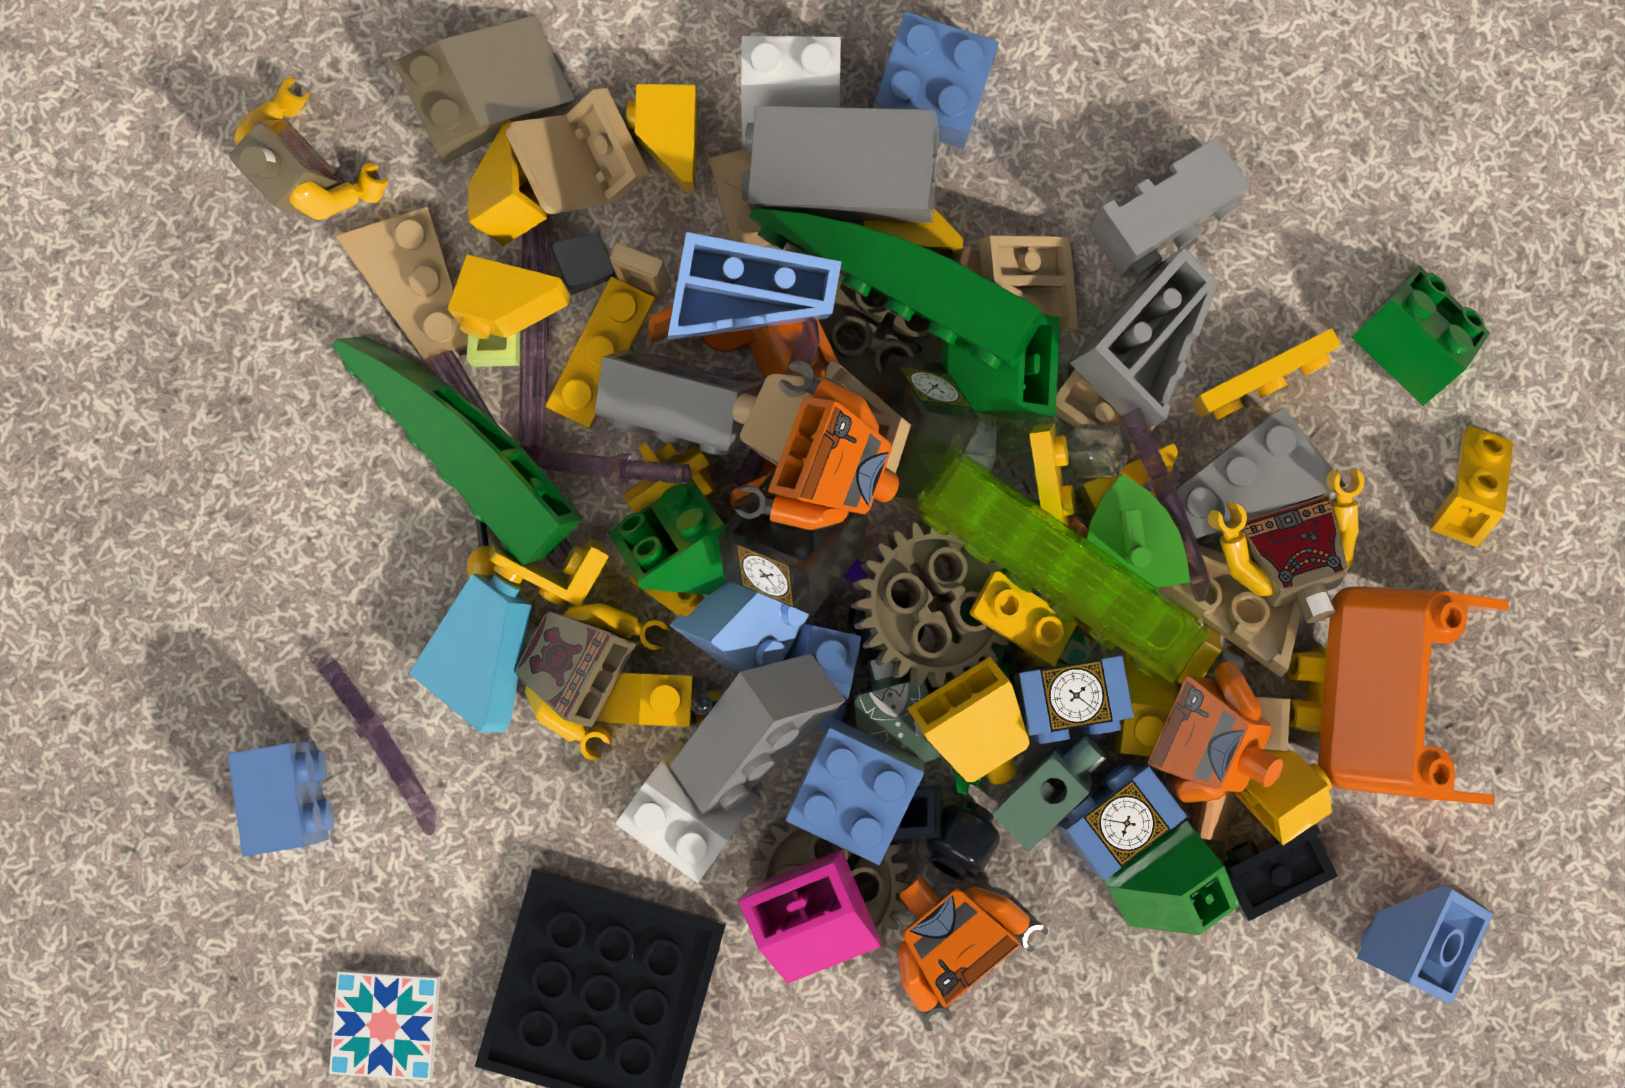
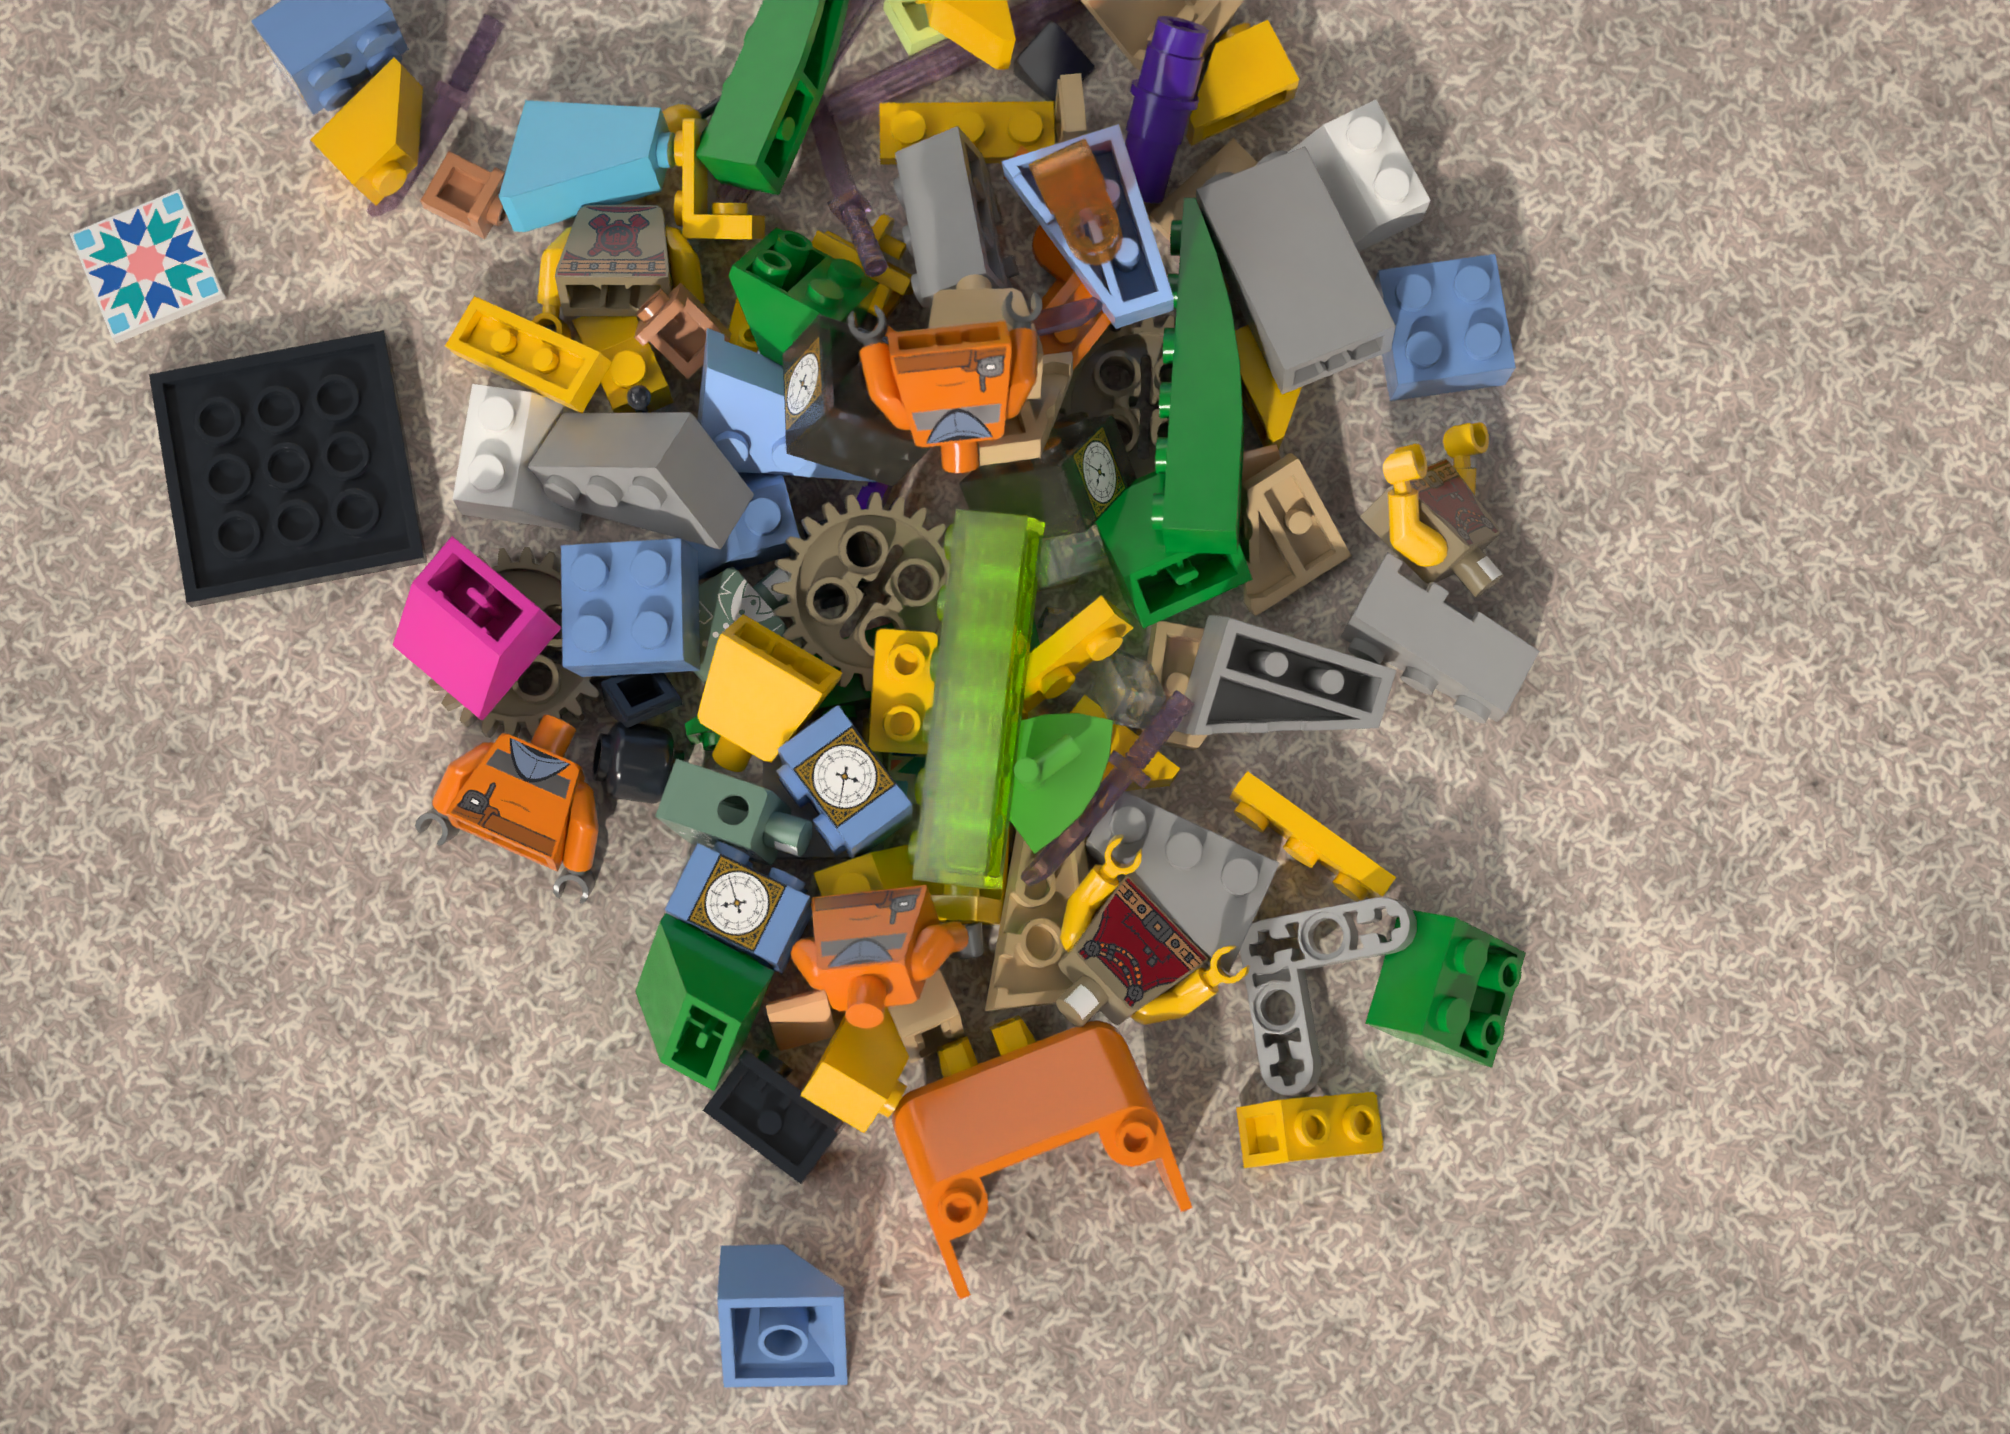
camera: 55 degrees right, 5 degrees down
(374, 800) = (376, 133): none -> yellow slope
(456, 753) = (466, 195): none -> nougat bracket
(611, 769) = (528, 354): none -> yellow plate
(652, 645) = (677, 327): none -> nougat bracket
(659, 189) = (1163, 102): none -> dark purple piece
(723, 291) = (1077, 195): none -> clear orange piece
(1082, 159) = (1434, 514): none -> torso
(1356, 442) = (1290, 975): none -> light grey beam

